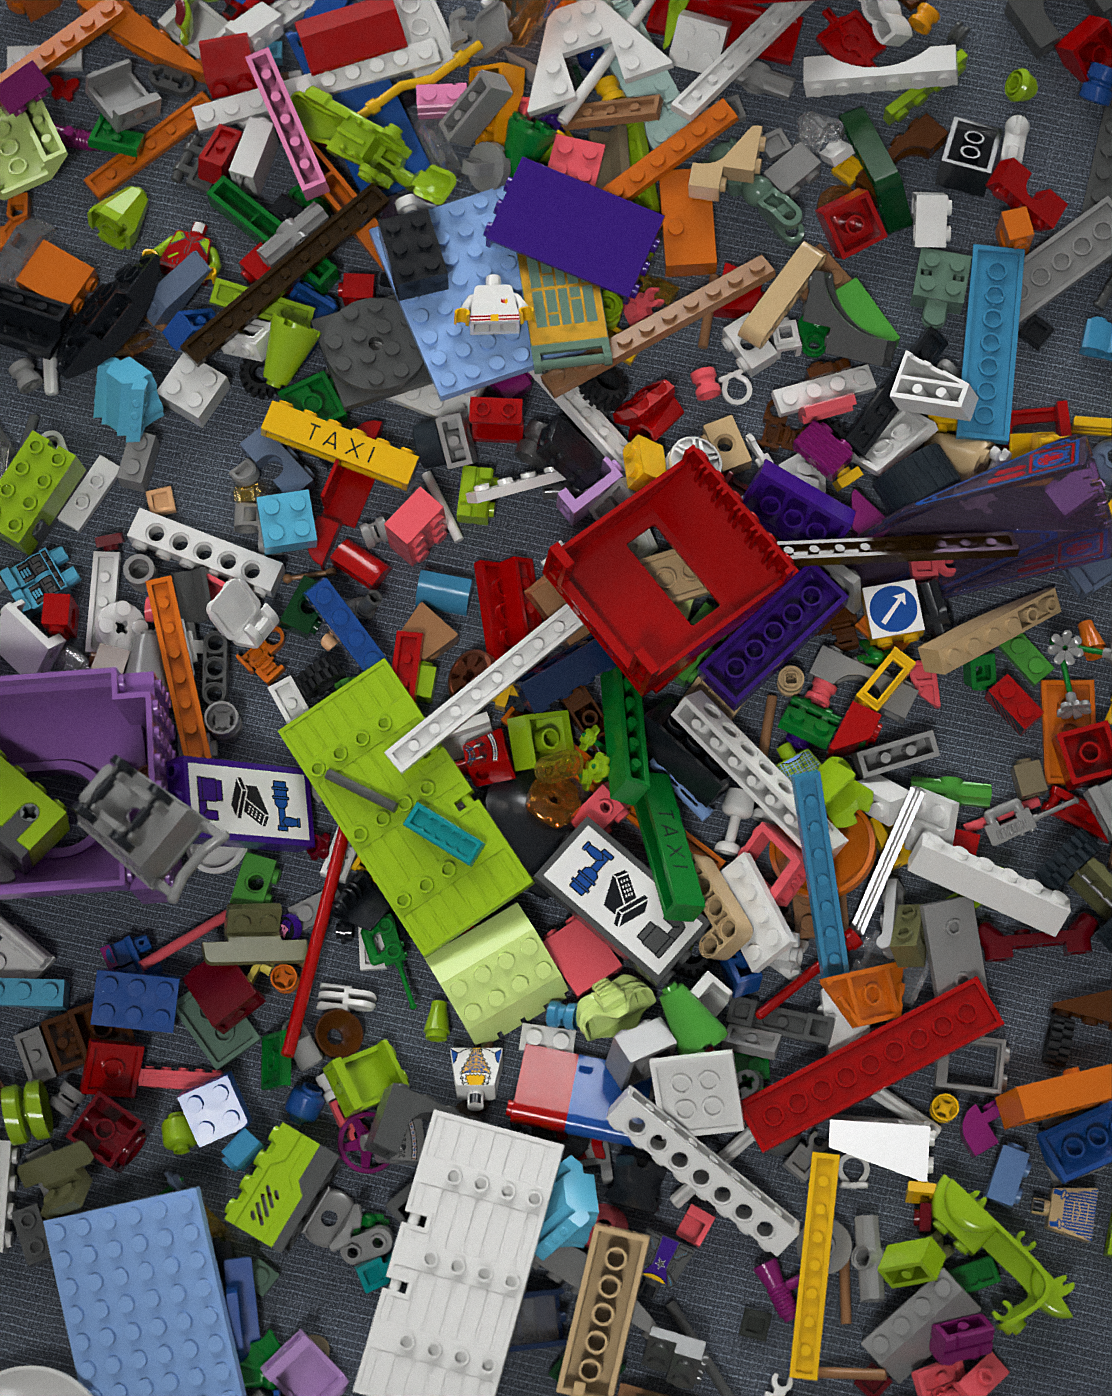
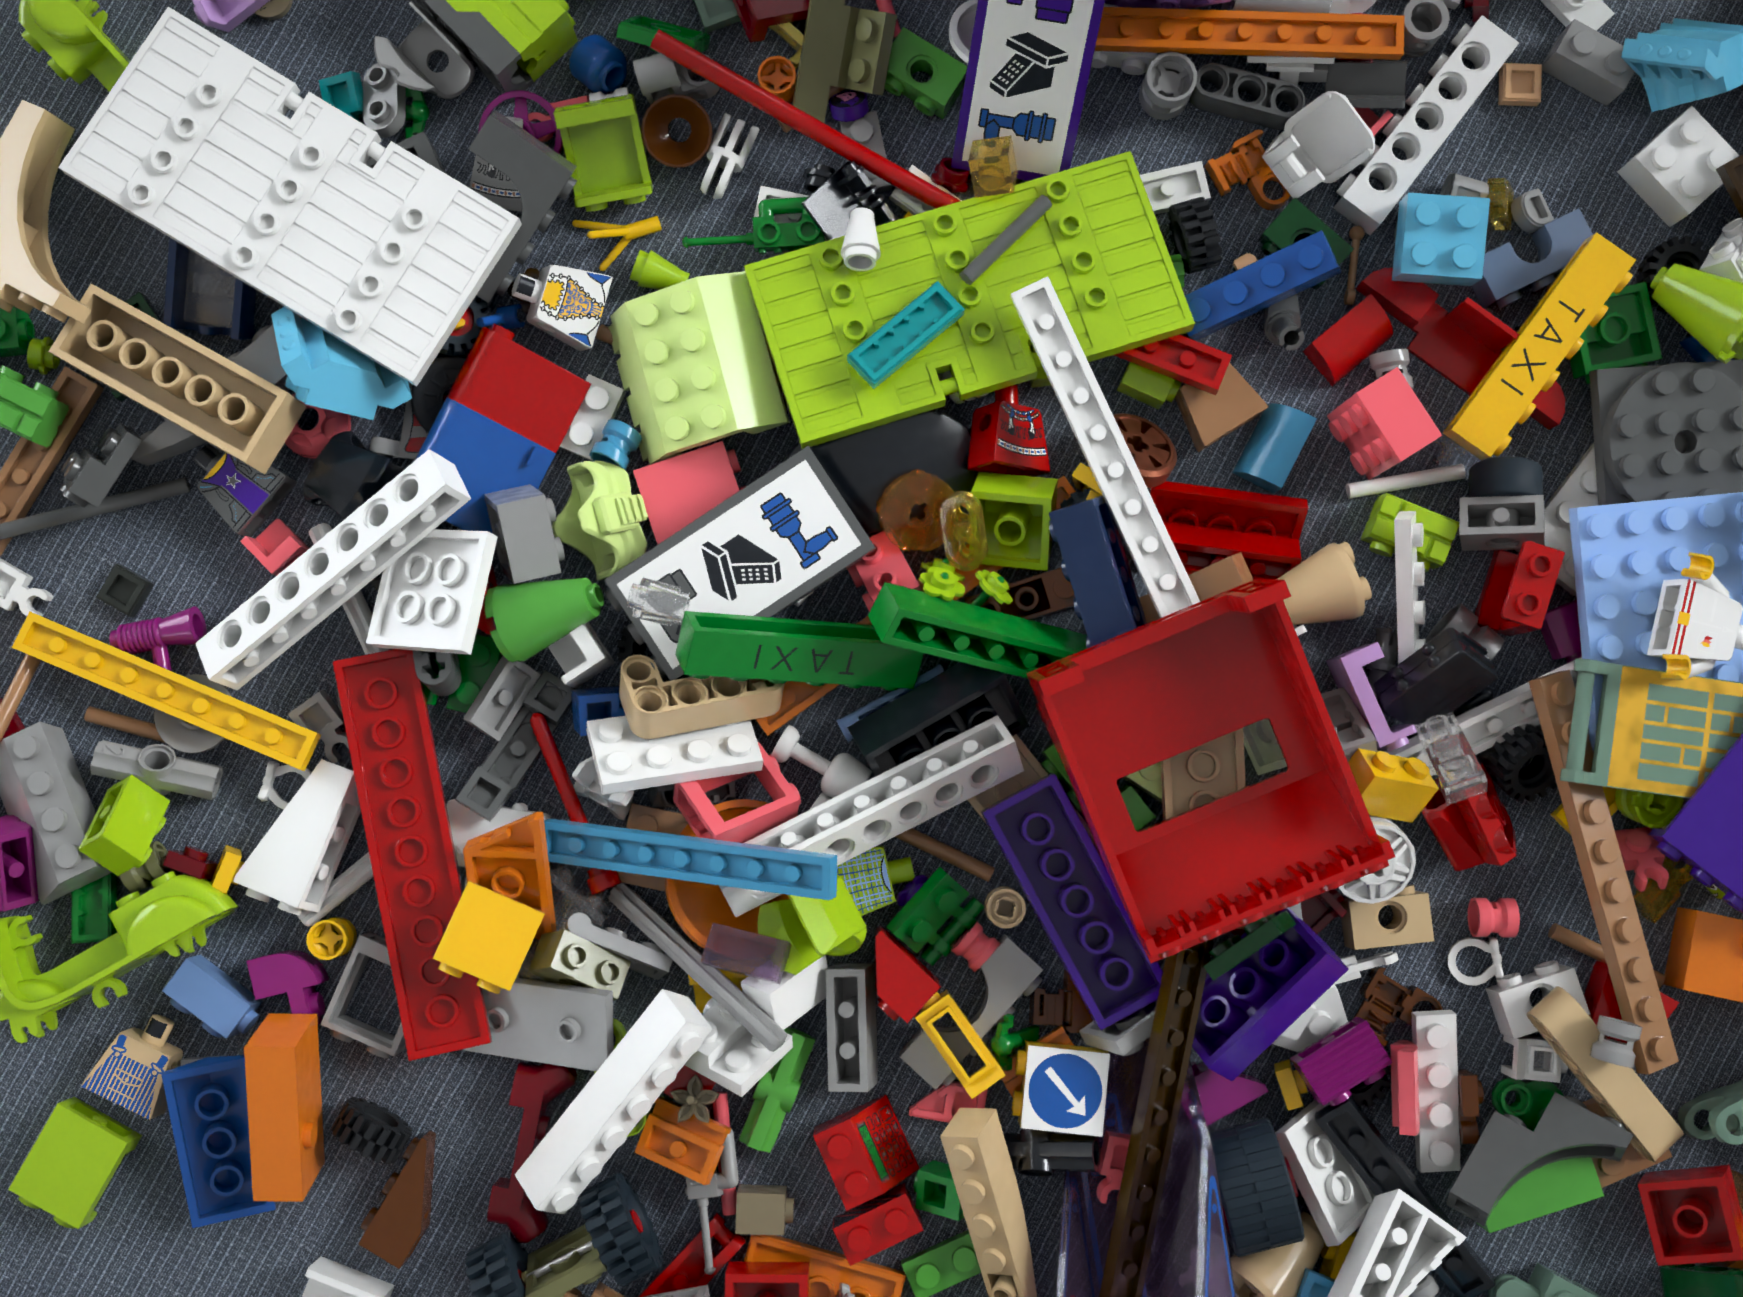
camera: 100 degrees right, 10 degrees up
(312, 814) = (993, 166): none -> clear yellow brick
(388, 882) = (861, 242): none -> white cone
(416, 1053) = (628, 231): none -> yellow plant
(472, 729) = (1059, 436): white panel -> none
(496, 1115) = (505, 317): none -> blue hand
(528, 537) = (1326, 587): none -> tan cone
(616, 432) = (1451, 758): none -> clear slope
(663, 940) = (658, 602): none -> clear brick
(765, 291) = (1613, 1050): none -> light grey wheel
(774, 524) = (1236, 949): none -> dark green plate
(869, 826) = (746, 953): none -> tile
(909, 992) = (488, 938): none -> yellow piece
(971, 726) = (865, 1151): none -> red slope
(973, 837) = (694, 1100): none -> dark tan plant
(1001, 838) = (684, 1147): none -> orange plate

